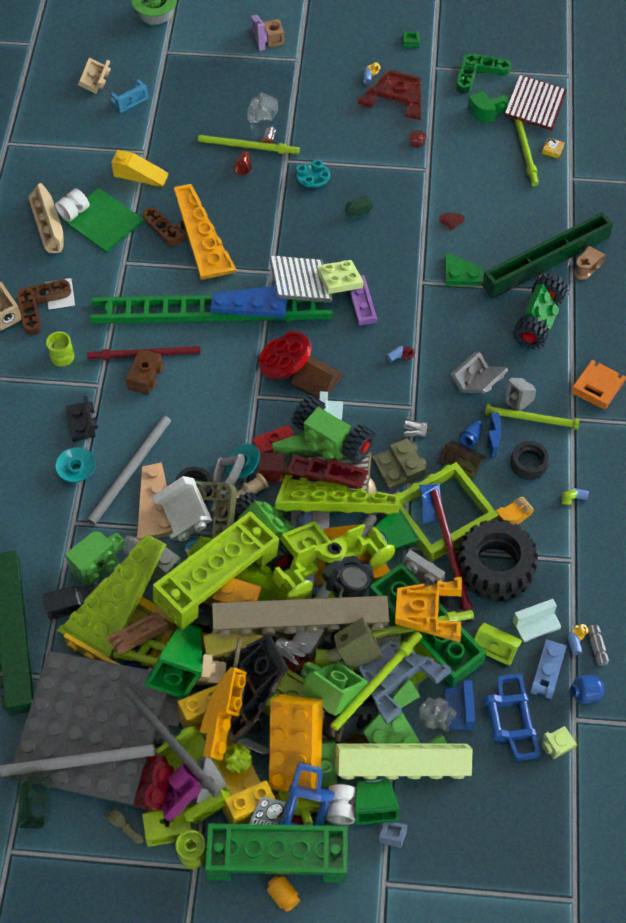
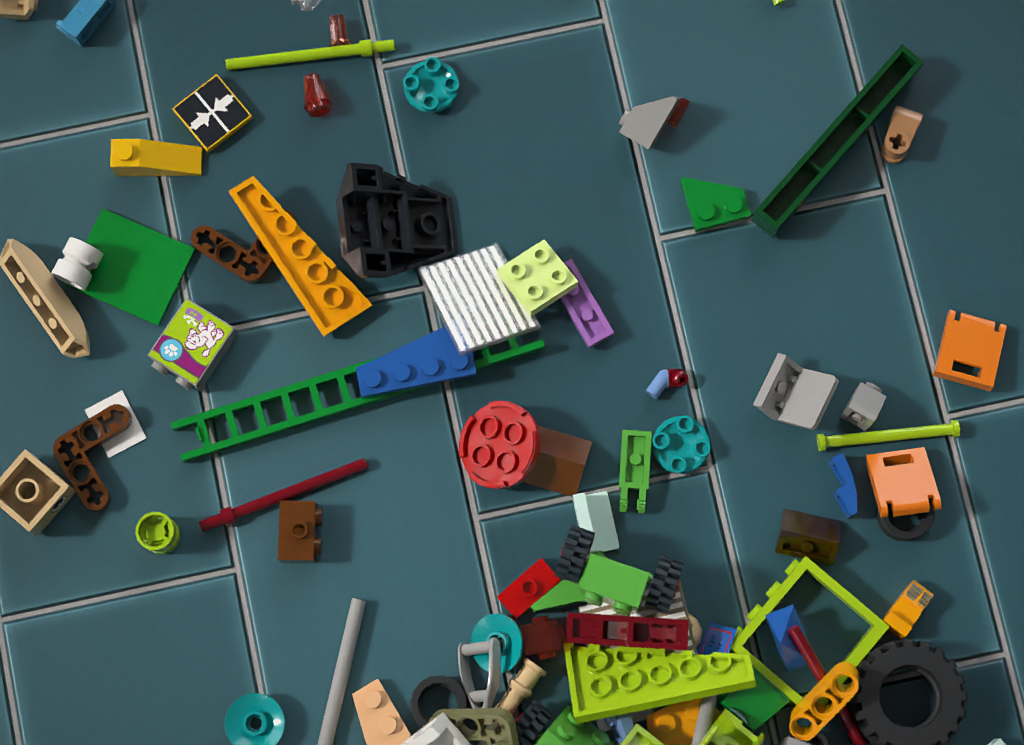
camera: 15 degrees left, 20 degrees up
(81, 421) = (233, 641): black bracket -> none
(121, 262) = (192, 345): none -> brick
(181, 158) = (212, 113): none -> black tile
(262, 226) = (391, 222): none -> black wedge
(358, 207) = (522, 130): clear green brick -> none
(364, 392) = (634, 466): none -> bright green hinge
(398, 388) = (681, 444): none -> teal dish
(400, 464) = (722, 575): olive plate -> none
(419, 428) = (729, 507): flat silver piece -> none
(436, 217) = (648, 120): none -> light grey slope
(450, 536) = (819, 714): none -> light orange beam
(470, 436) = (810, 493): blue cone -> none
(532, 439) = (904, 485): none -> orange container
(541, 311) = (856, 251): plate -> none
(570, 494) = (978, 550): arm -> none

